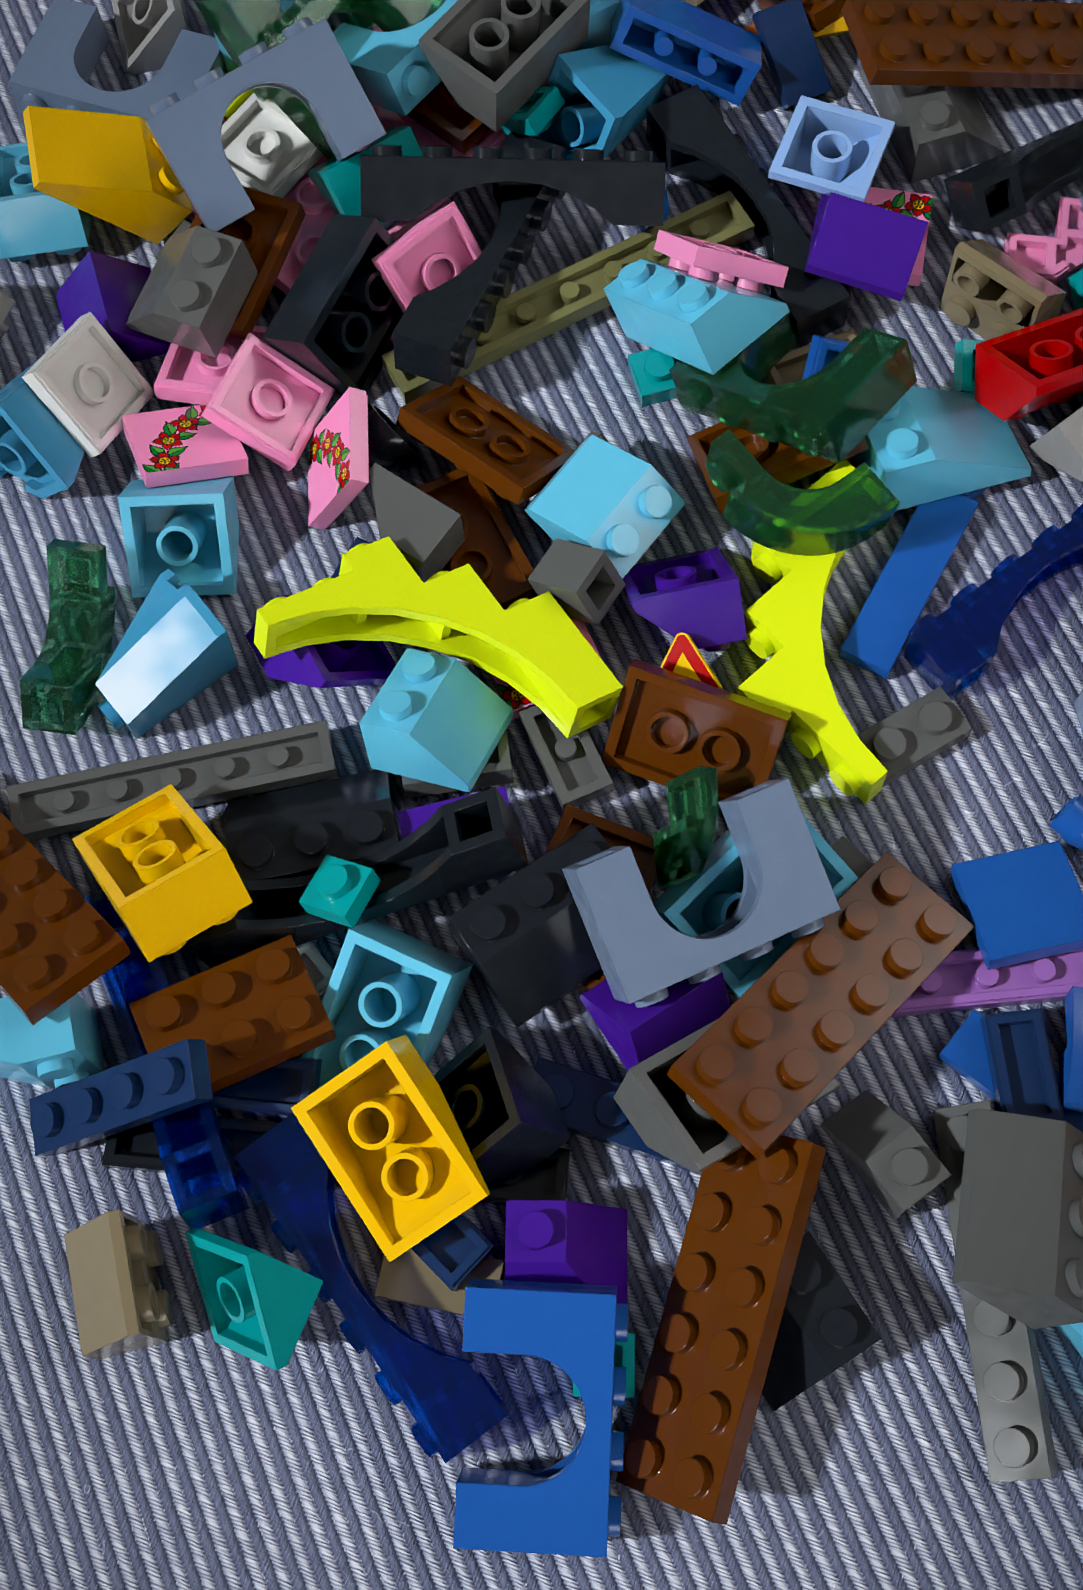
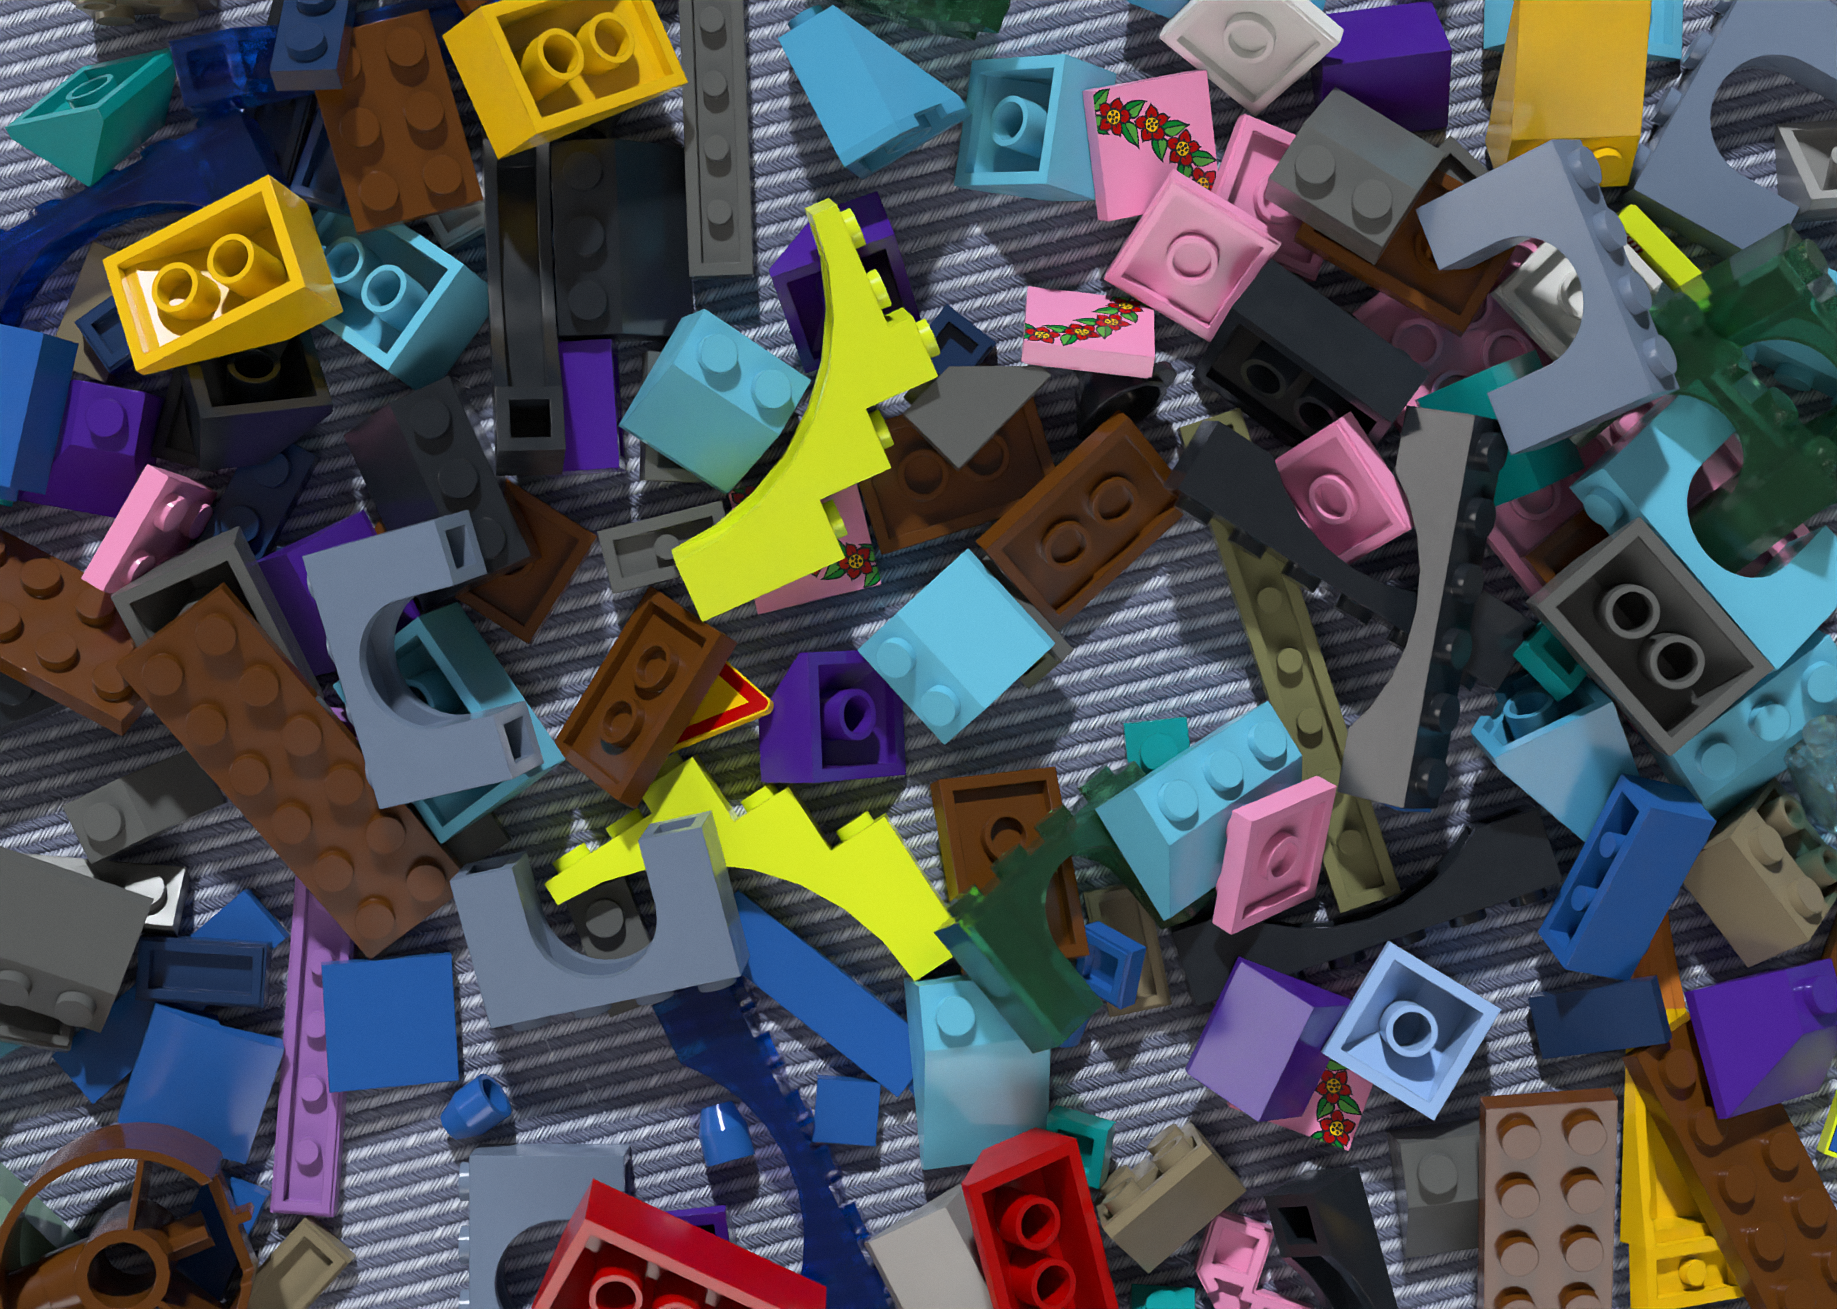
camera: 90 degrees right, 20 degrees up
(339, 891) = (509, 259): teal plate -> none
(578, 579) = (859, 593): dark grey brick -> none
(614, 1163) = (150, 528): none -> bright pink plate
(687, 841) = (514, 662): clear green slope -> none
(795, 518) = (868, 898): clear green arch -> none
(896, 654) = (533, 975): none -> sand blue arch
(997, 537) = (846, 1110): none -> blue tile
(1046, 625) = (724, 1134): none -> blue hose

